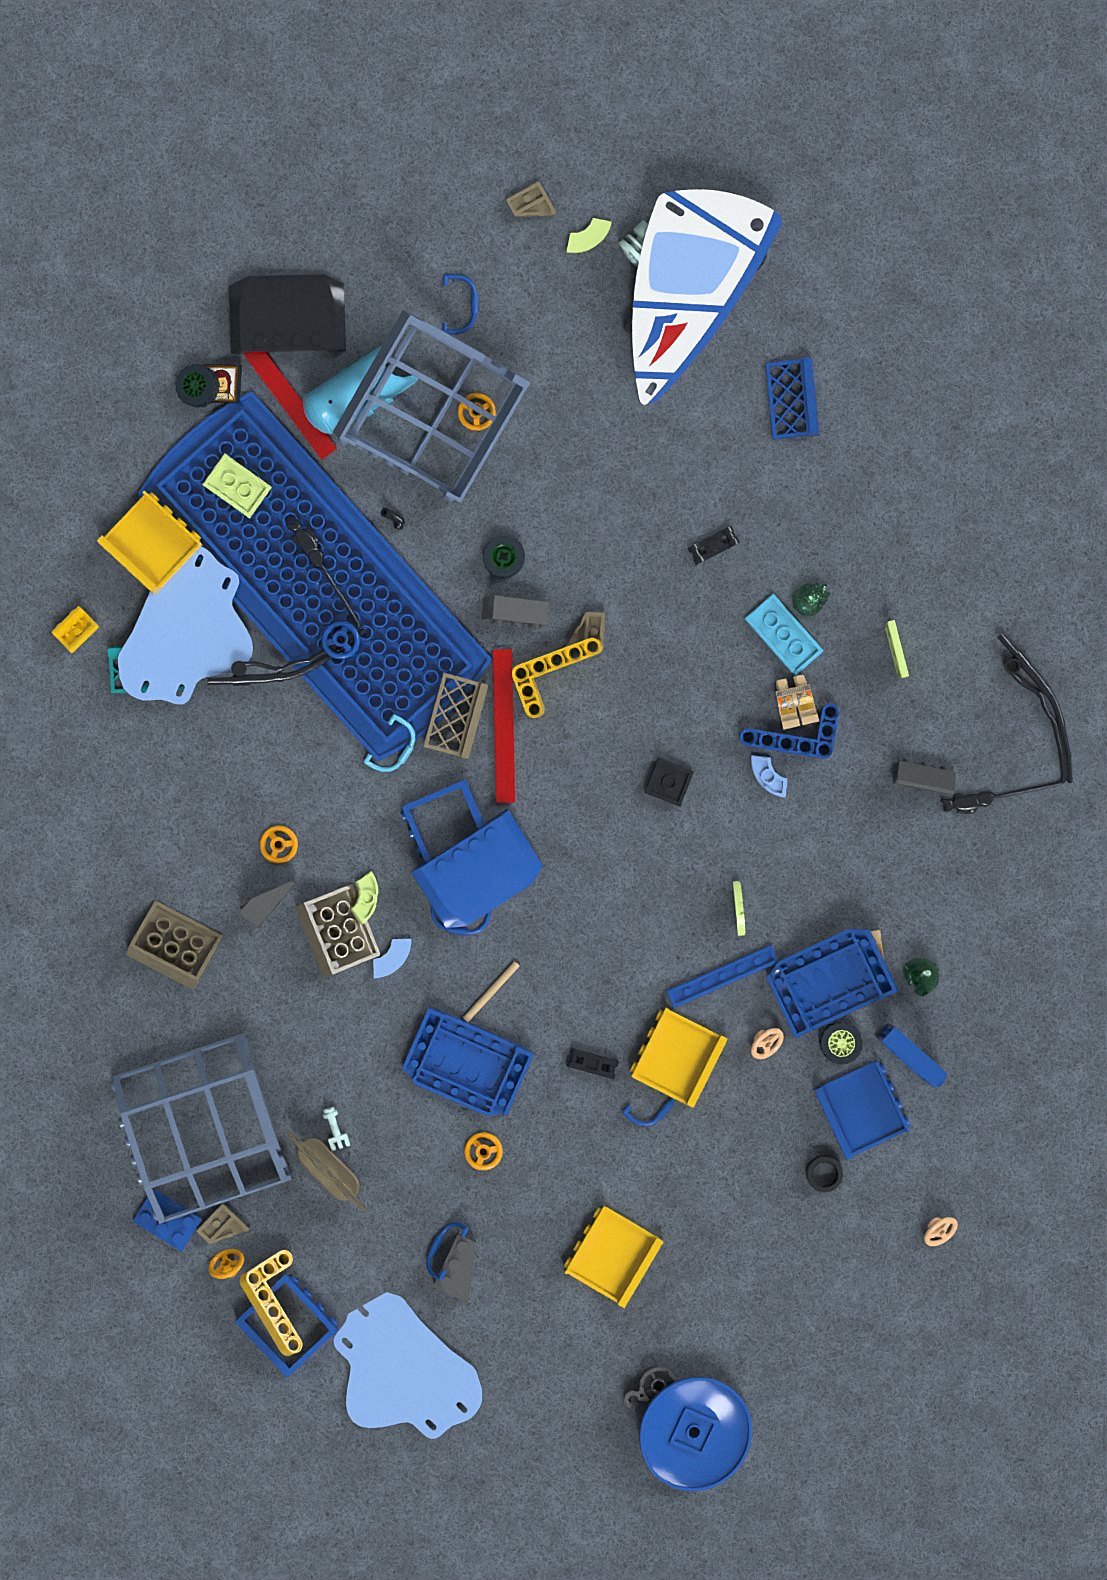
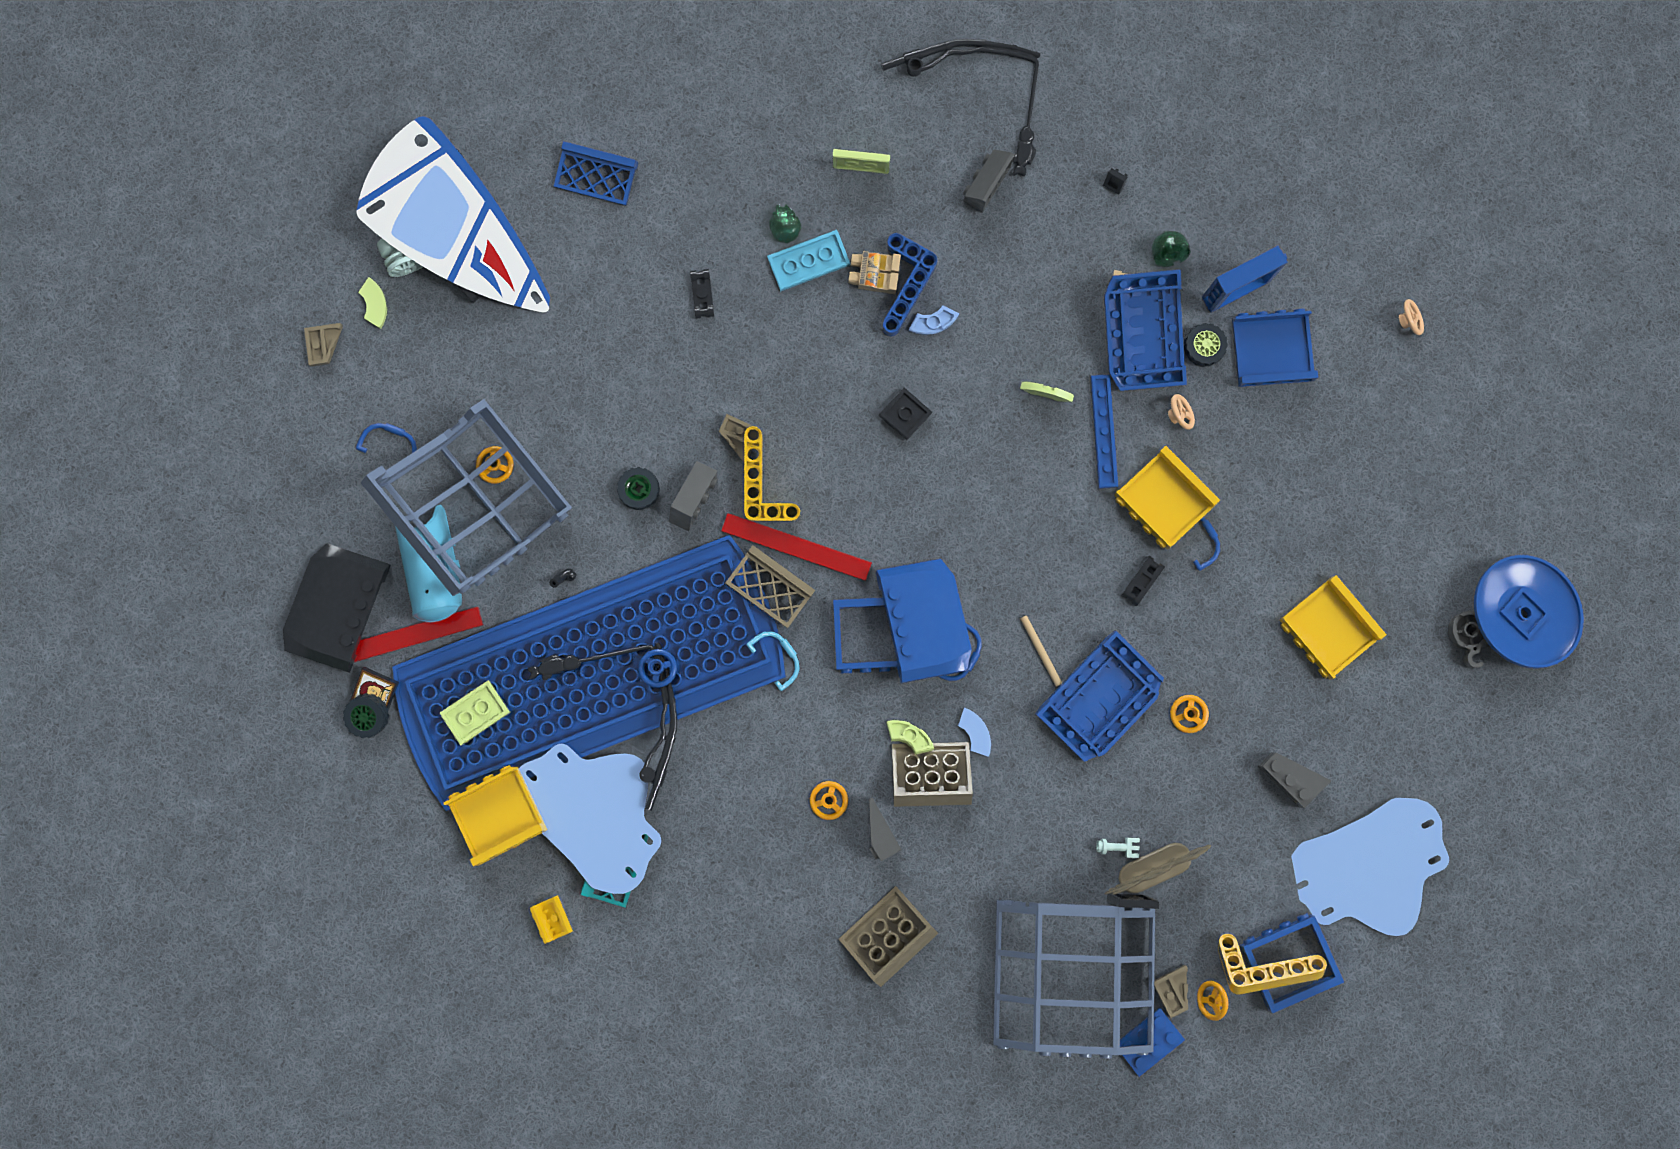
camera: 70 degrees left, 5 degrees down
(288, 1156) = (1133, 901): none -> black tile
(436, 1243) = (1263, 792): blue piece -> none
(821, 1159) = (1332, 393): black tyre -> none
(970, 900) = (1115, 180): none -> black tile

